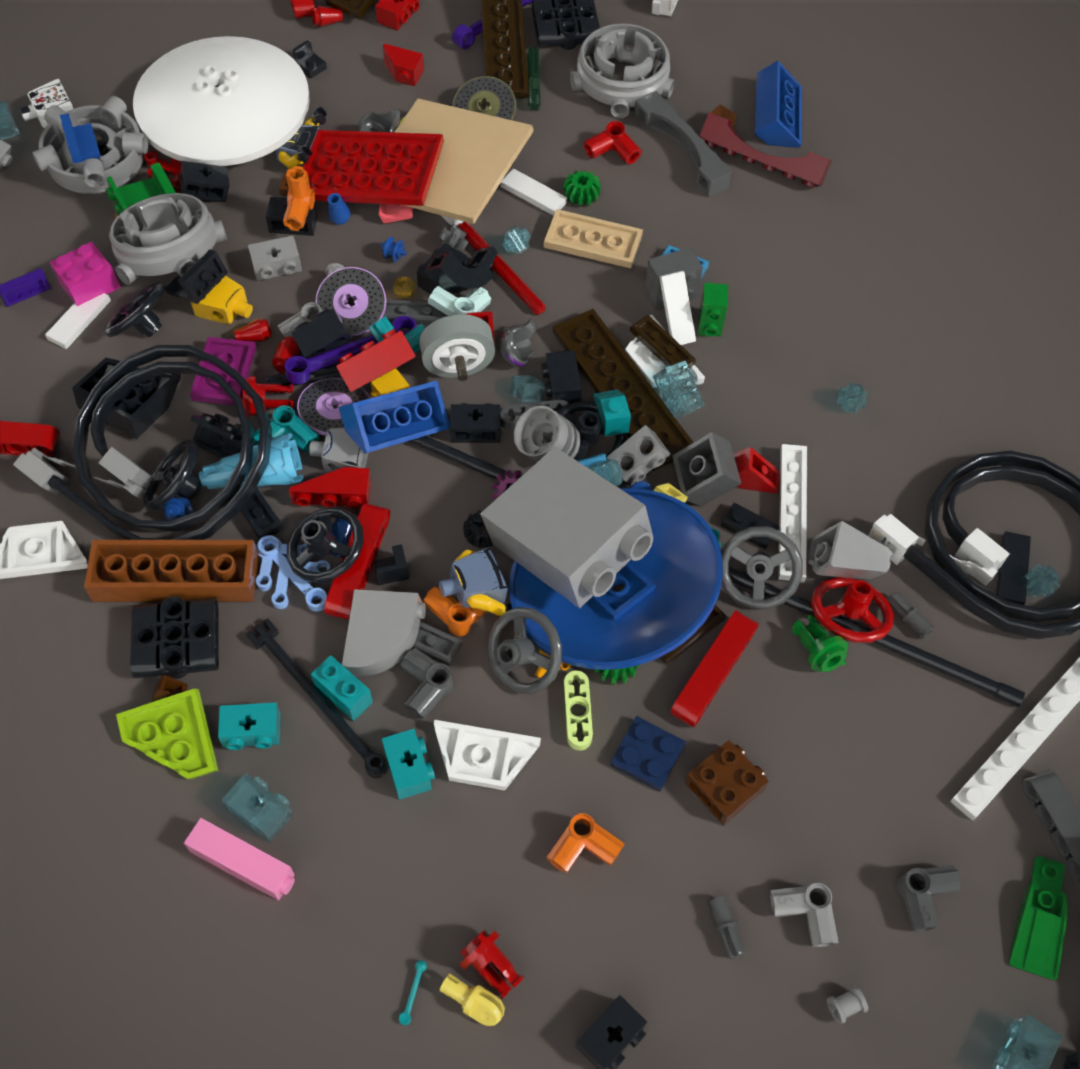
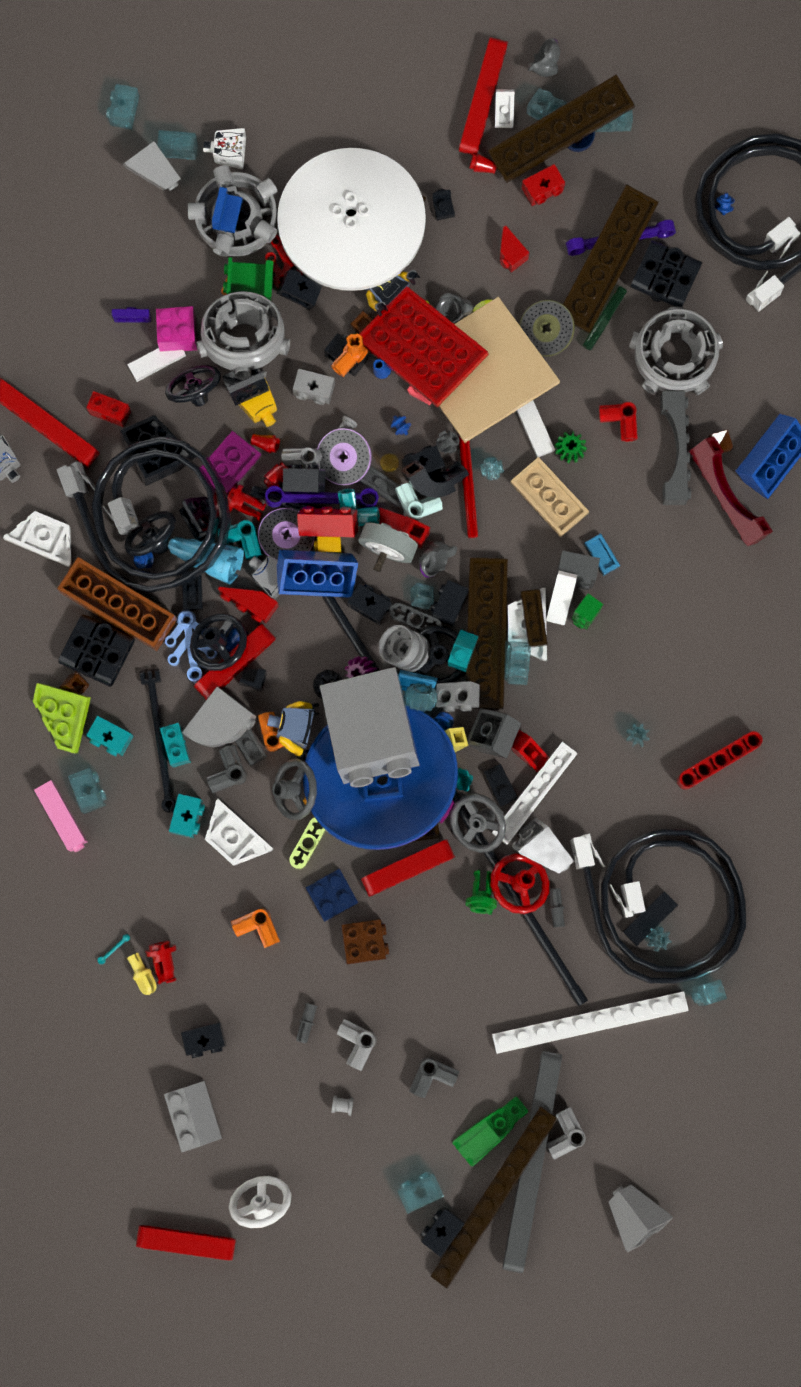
camera: 35 degrees right, 20 degrees up
(45, 383) = (108, 409): none -> red brick
(951, 378) = (726, 753): none -> red beam

